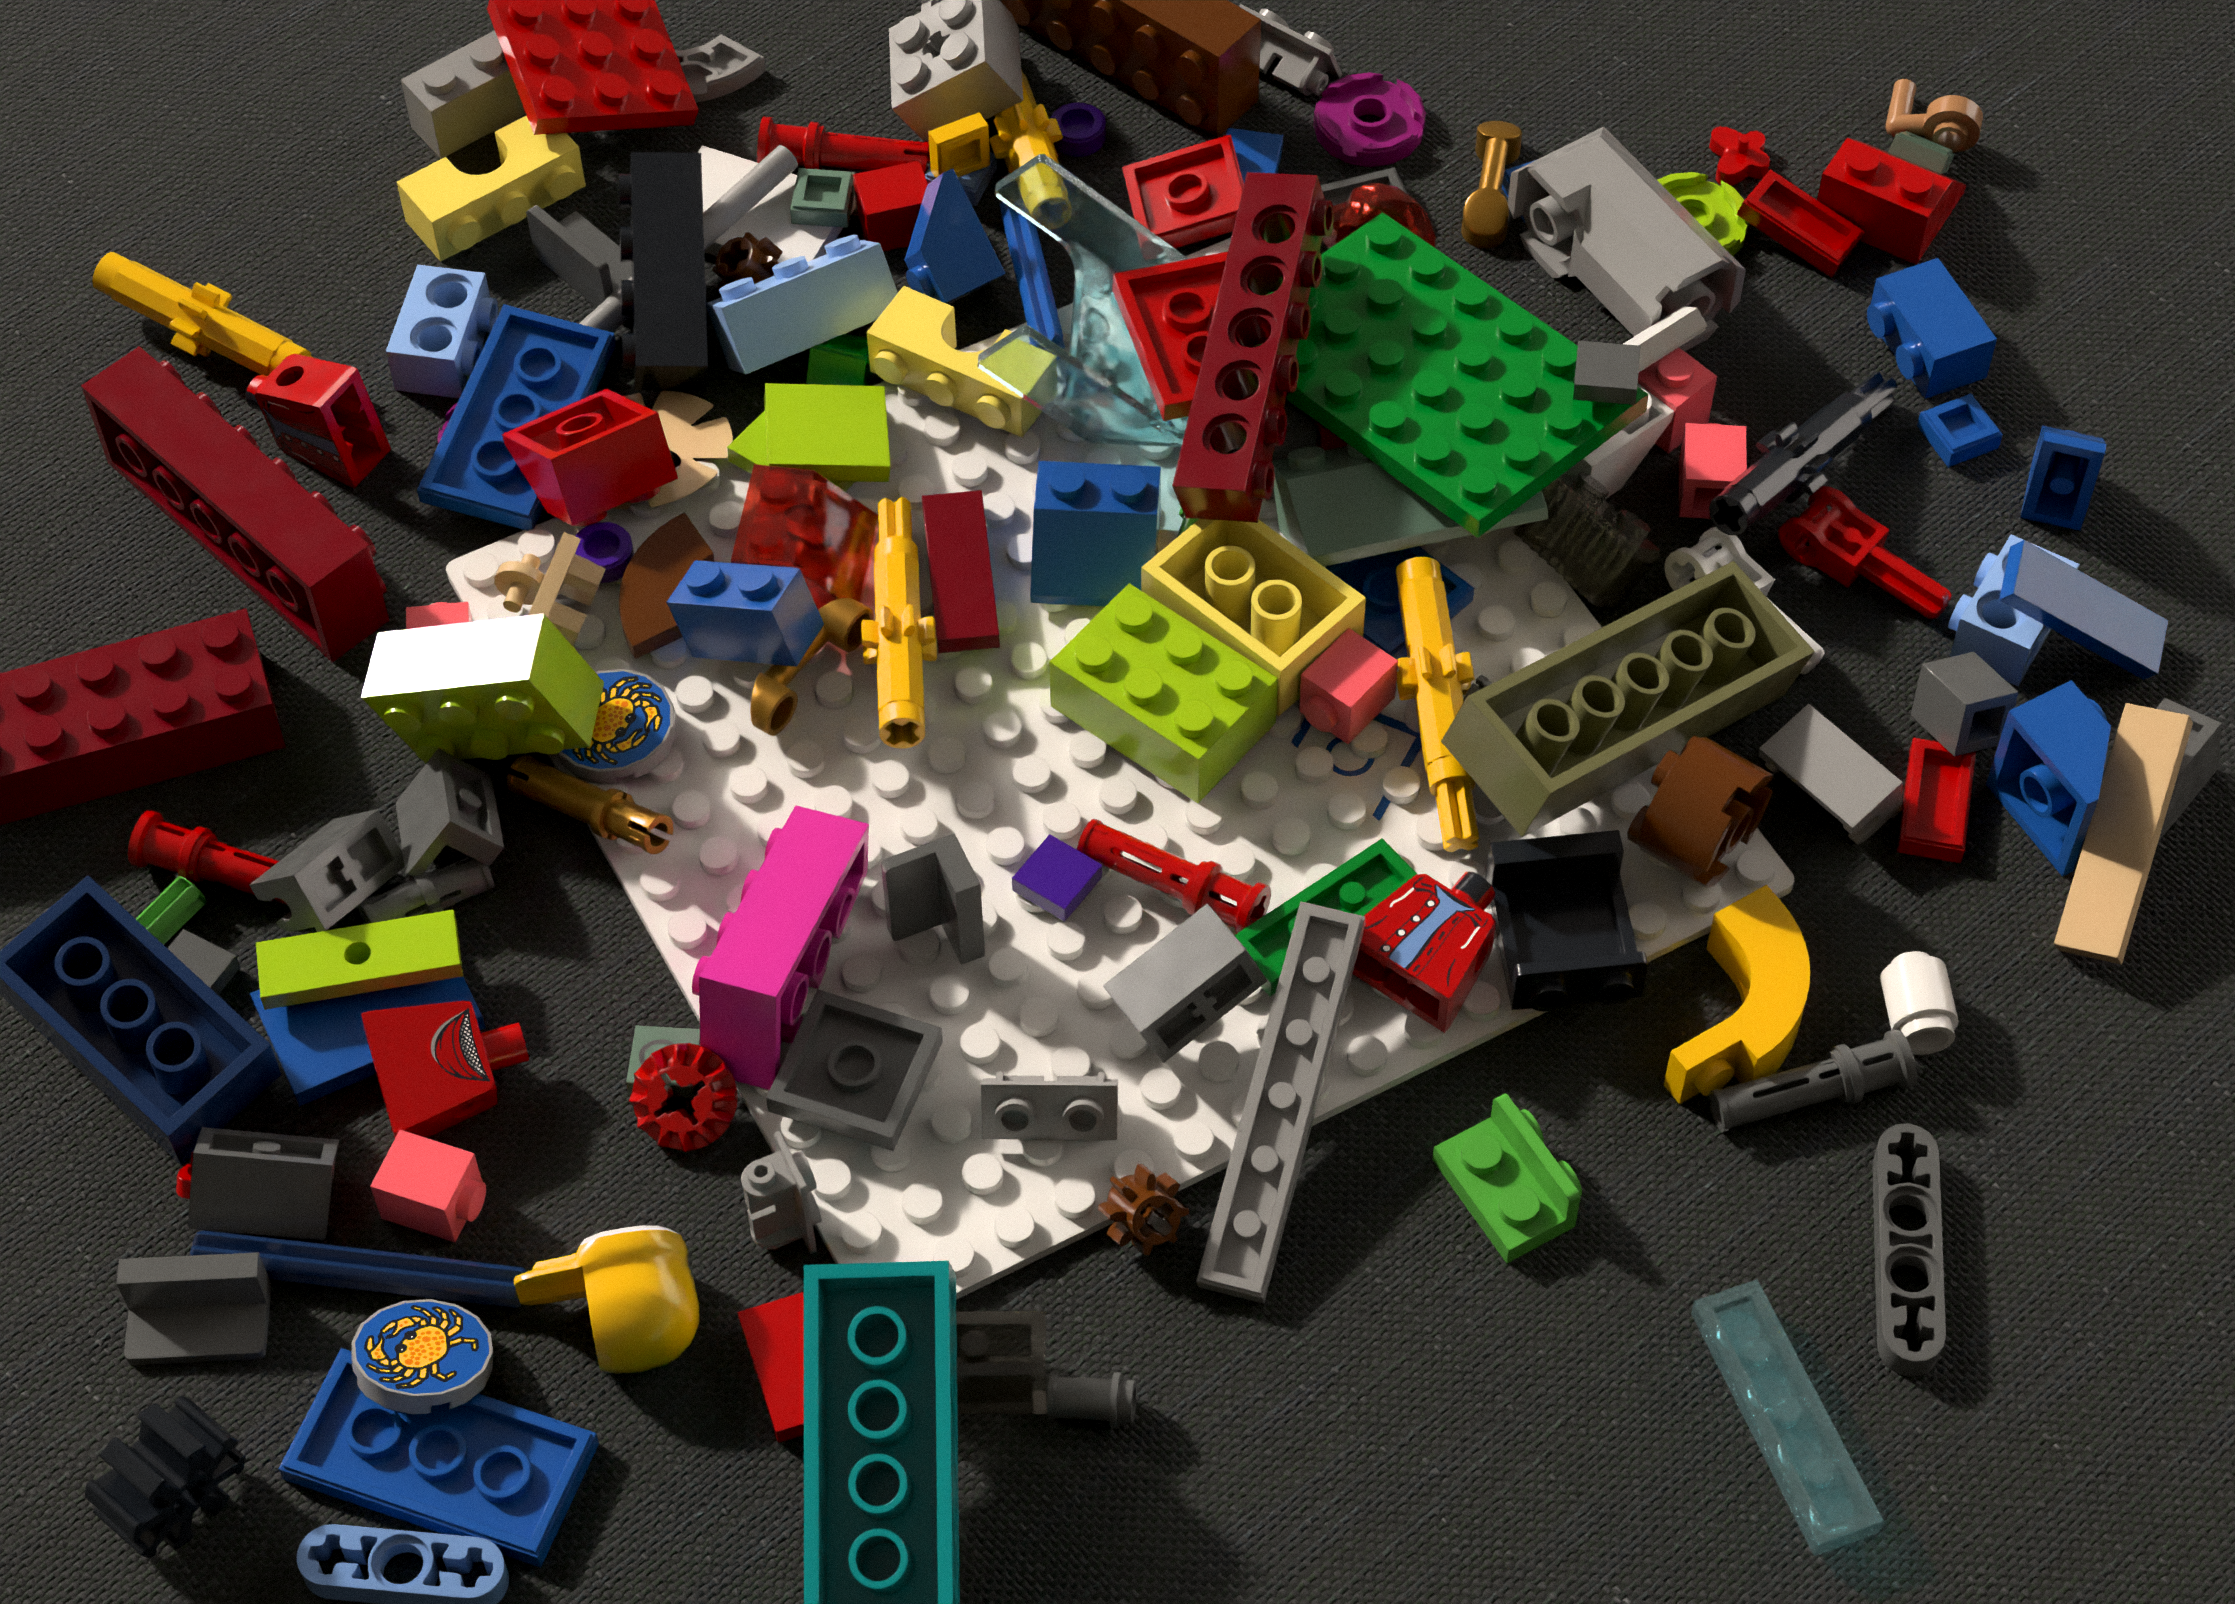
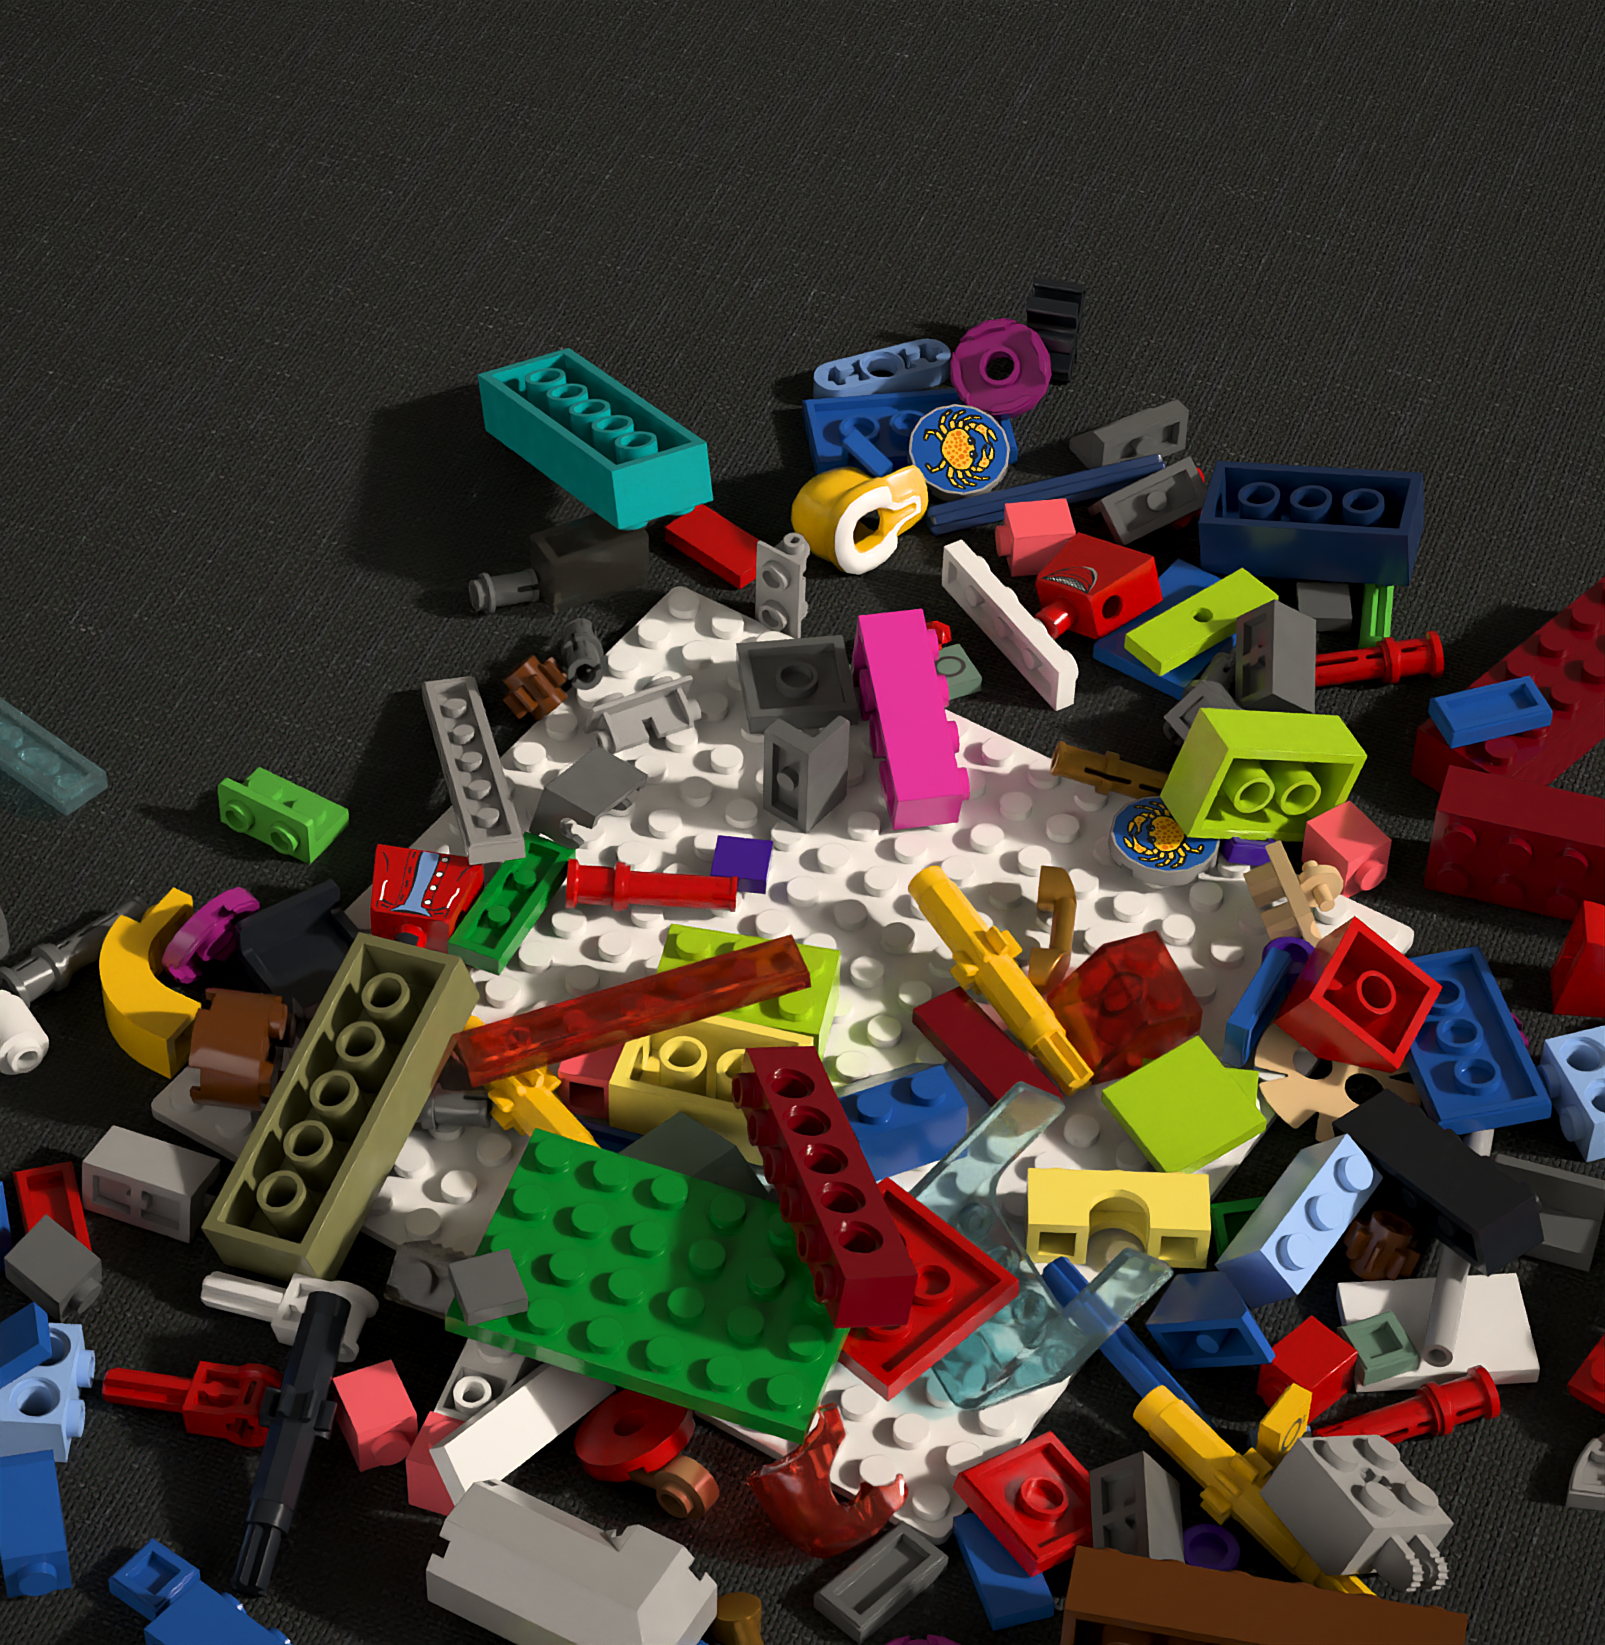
camera: 150 degrees right, 10 degrees down
(197, 660) = (1490, 712): none -> blue tile
(279, 1450) = (991, 341): none -> magenta tile
(552, 1101) = (1009, 625): none -> white plate
(559, 1344) = (862, 454): none -> blue tile
(652, 579) = (1219, 948): reddish brown tile -> none
(693, 489) = (1256, 1007): none -> blue tile
(745, 613) = (1110, 904): blue brick -> none
(1063, 1231) = (577, 655): none -> dark grey pin
(1131, 136) = (1137, 1508): none -> dark grey hinge
(1298, 647) = (632, 1010): none -> clear red tile
(1700, 1003) = (207, 935): none -> magenta tile

